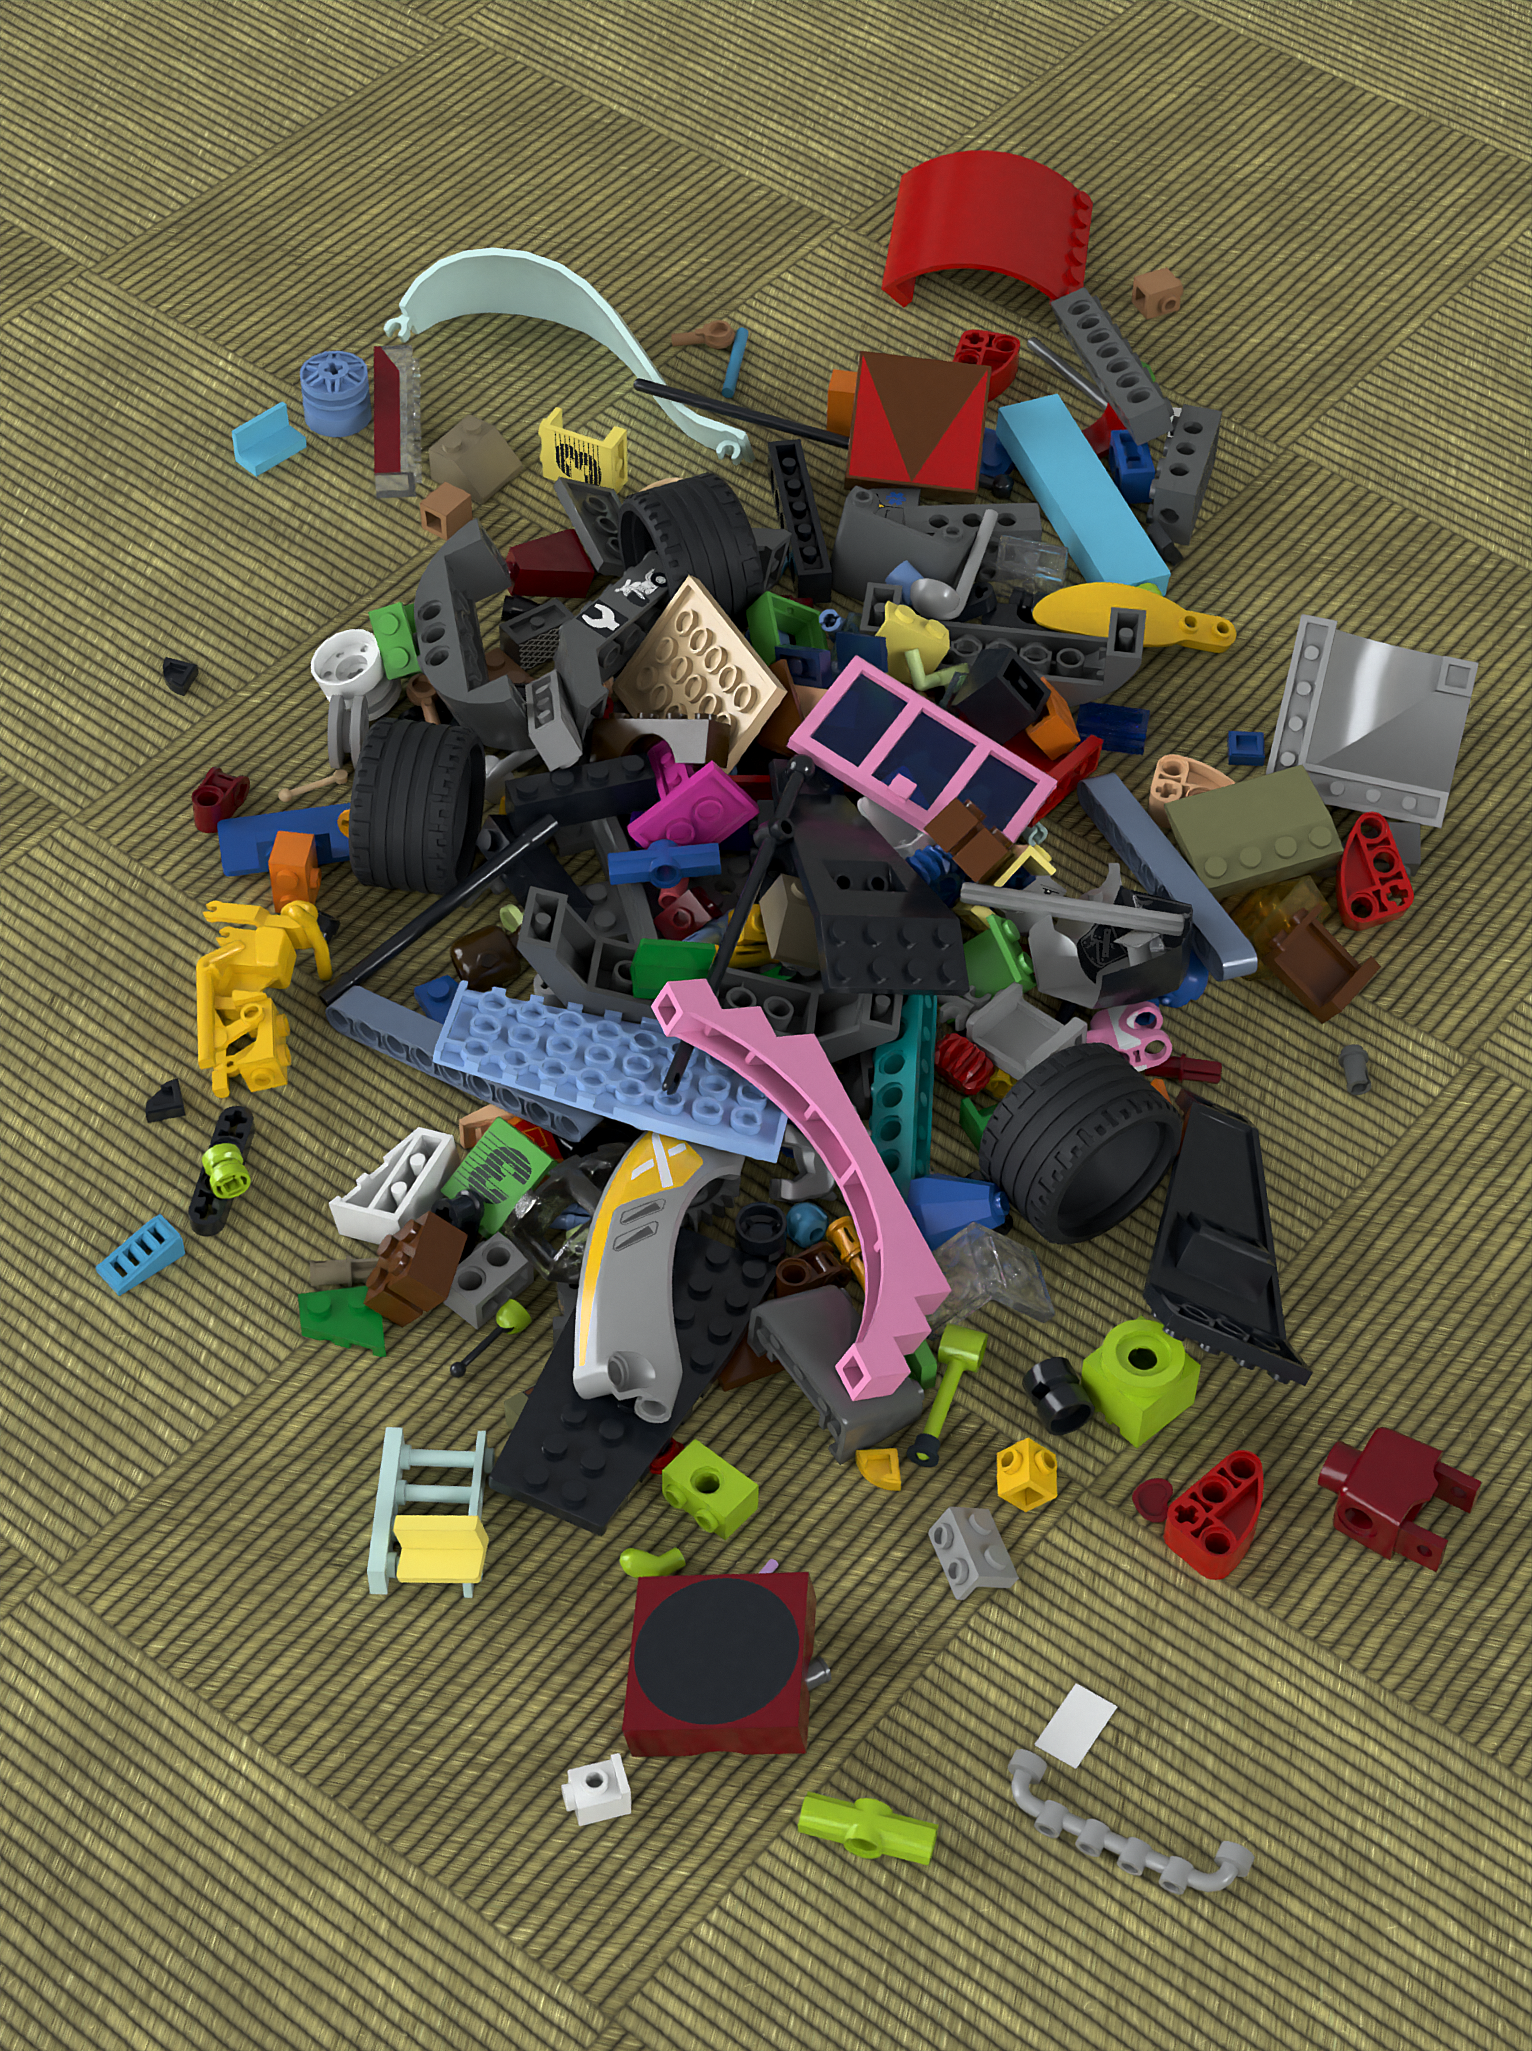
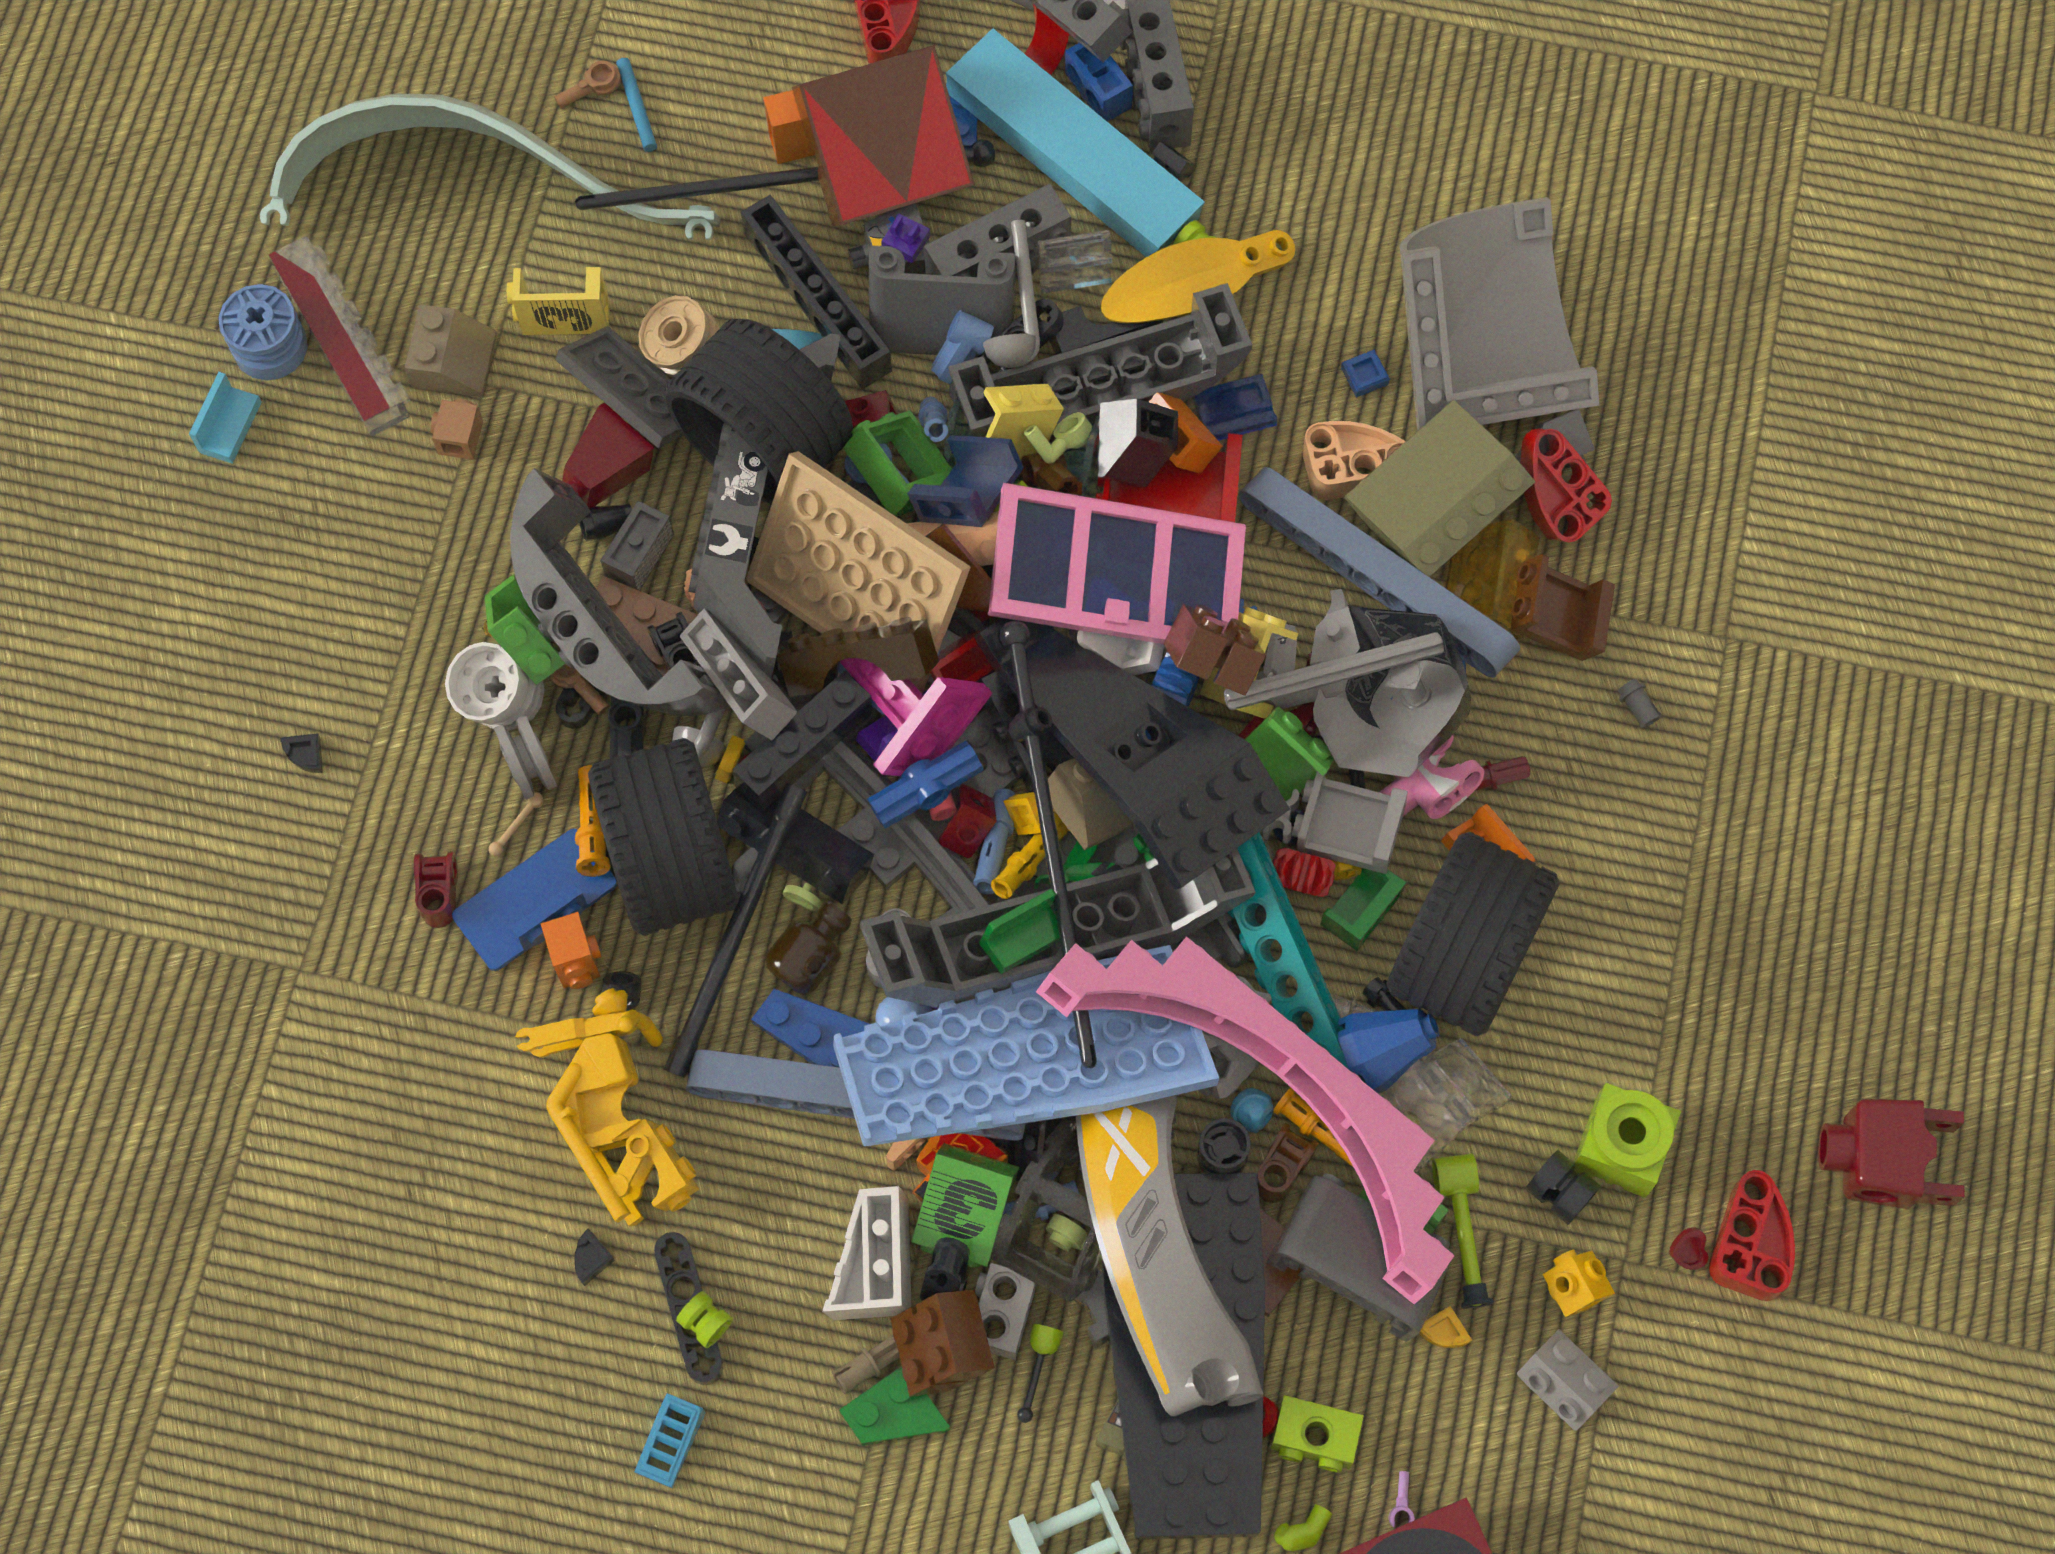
camera: 25 degrees left, 20 degrees up
(892, 502) = (906, 237): none -> dark purple tile
(1025, 602) = (1084, 294): black wheel -> none
(1075, 1726) = (1733, 1503): white sticker -> none
(1215, 1246) = (1632, 986): black wing -> none

